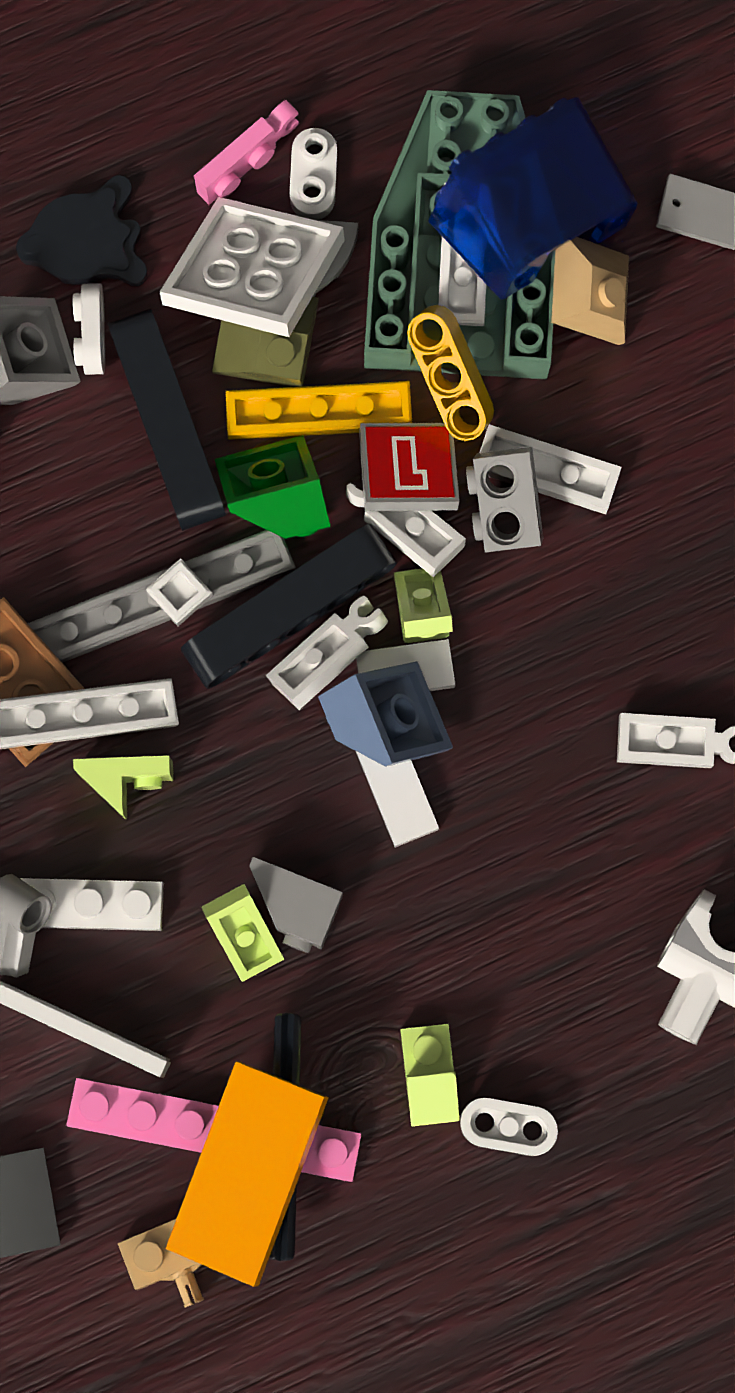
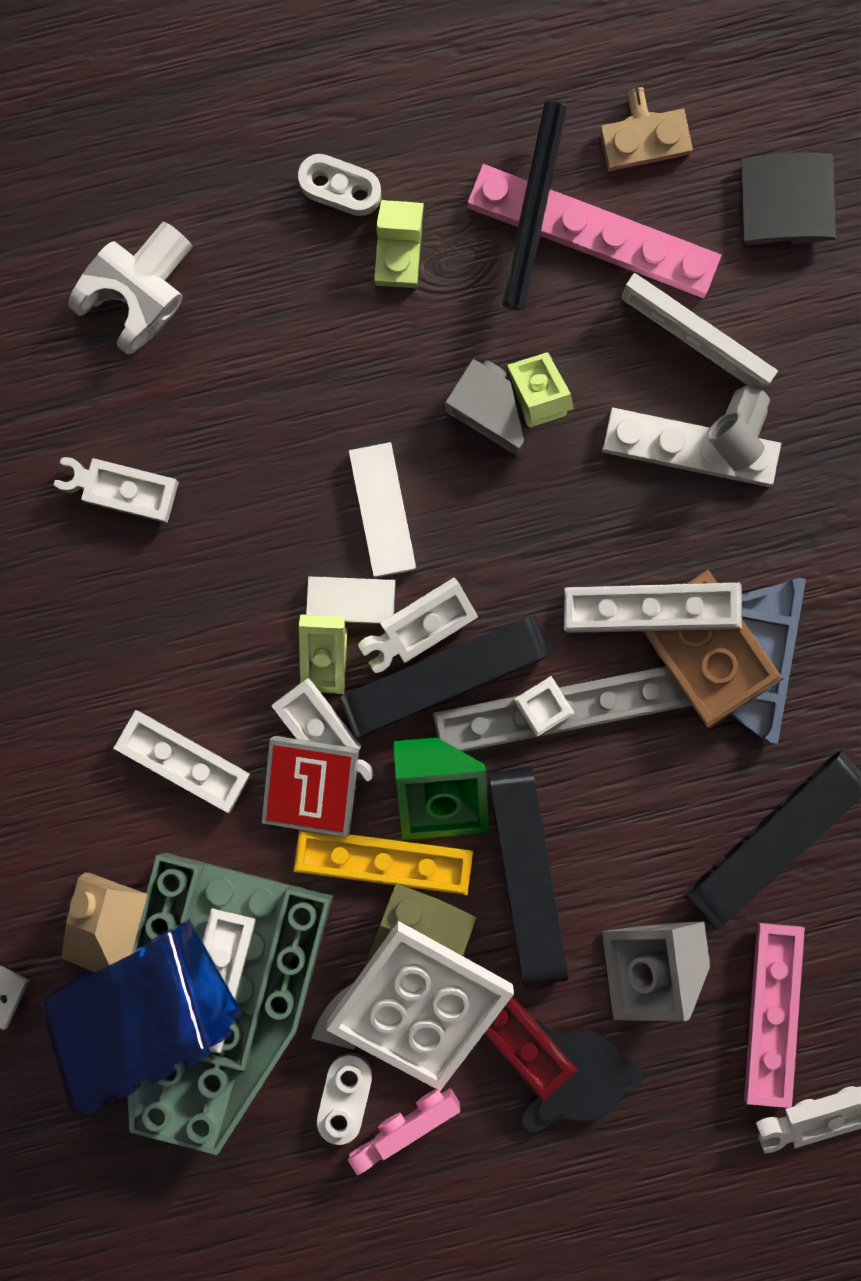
camera: 165 degrees left, 5 degrees up
(89, 309) = (587, 960): white plate -> none
(110, 776) = (634, 550): yellowish green slope -> none
(135, 252) = (529, 1049): none -> dark red tile
(247, 1173) = (572, 175): light orange tile -> none
(386, 715) = (375, 550): sand blue slope -> none
(446, 394) = (246, 884): yellow beam -> none
(519, 499) = (218, 733): light grey brick -> none

